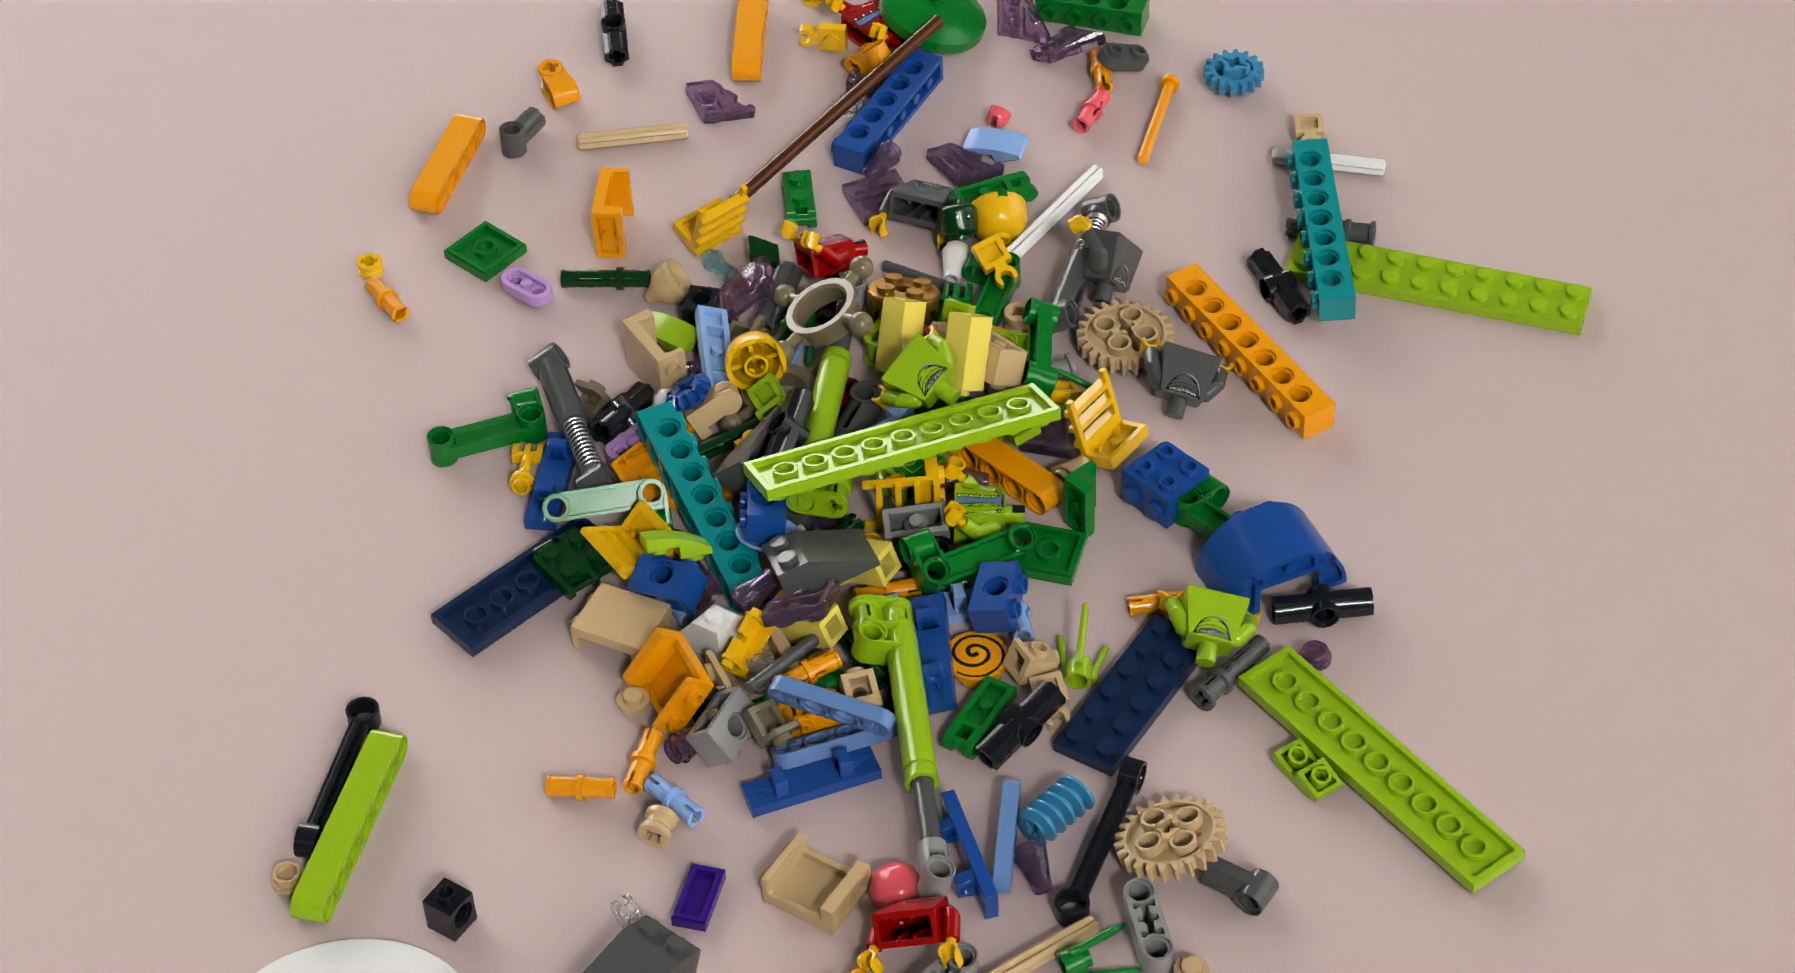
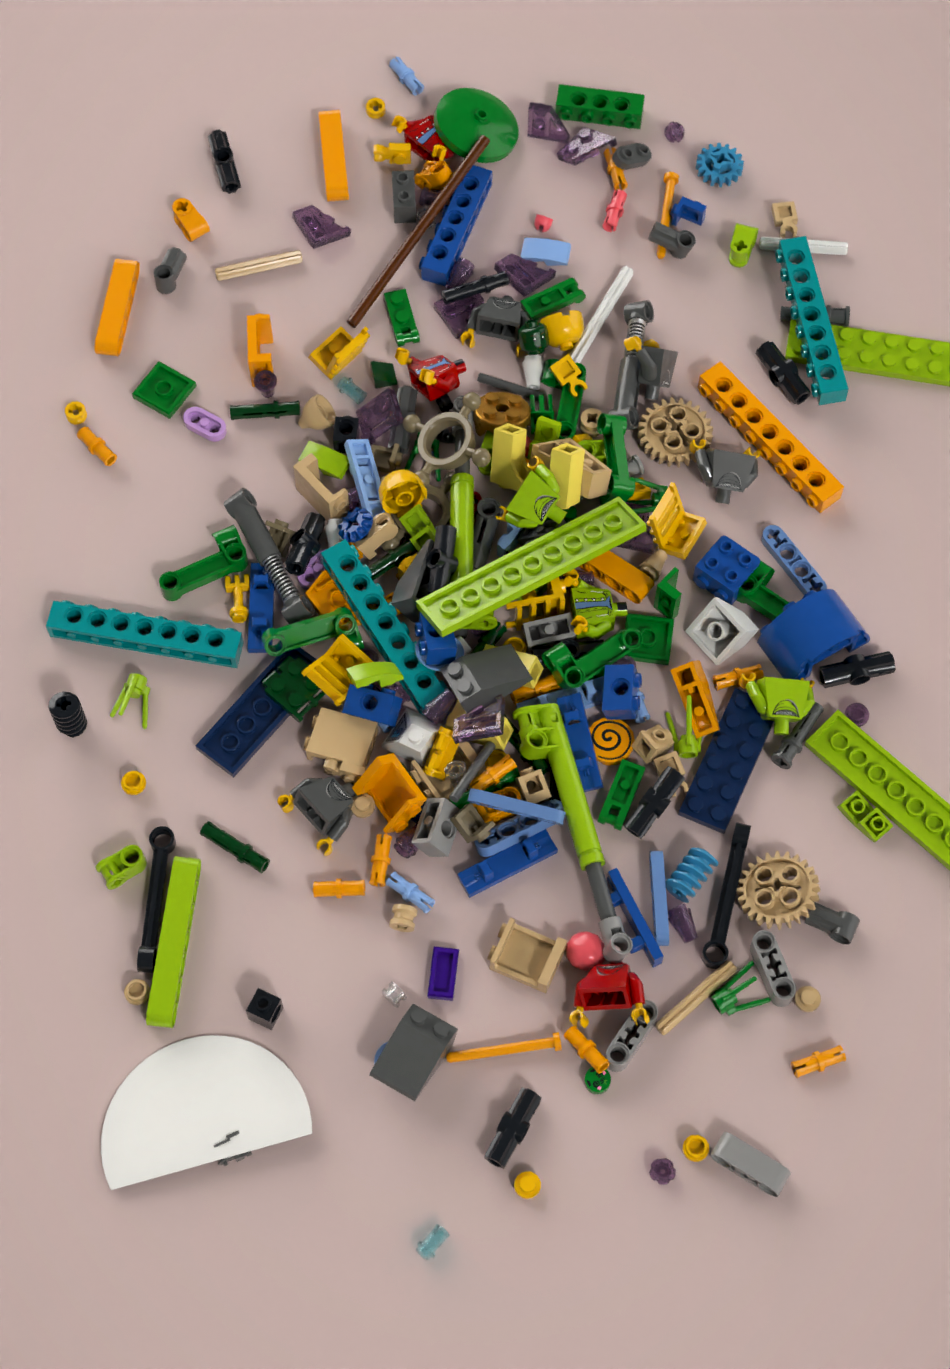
camera: 10 degrees left, 20 degrees up
(276, 564) = (68, 714): none -> black piece
(307, 736) = (120, 867): none -> lime piece
(342, 649) = (133, 782): none -> yellow plate
(368, 549) = (133, 688): none -> lime plant
(398, 493) = (108, 635): none -> teal brick
(464, 736) = (242, 852): none -> dark green pin
(581, 690) = (324, 805): none -> dark grey torso
(611, 246) = (265, 382): none -> cone
(617, 656) = (347, 771): none -> tan plate
(827, 77) = (404, 196): none -> dark grey brick
(896, 170) = (482, 285): none -> black pin
(1104, 621) = (692, 681): none -> light orange slope
(1147, 547) = (721, 630): none -> white slope
(1166, 143) = (677, 242): none -> dark grey piece
(1182, 38) = (674, 132): none -> clear purple plate
(1185, 115) = (688, 210): none -> blue bracket
(1249, 153) = (741, 245): none -> lime piece
(1249, 465) = (796, 561): none -> medium blue beam

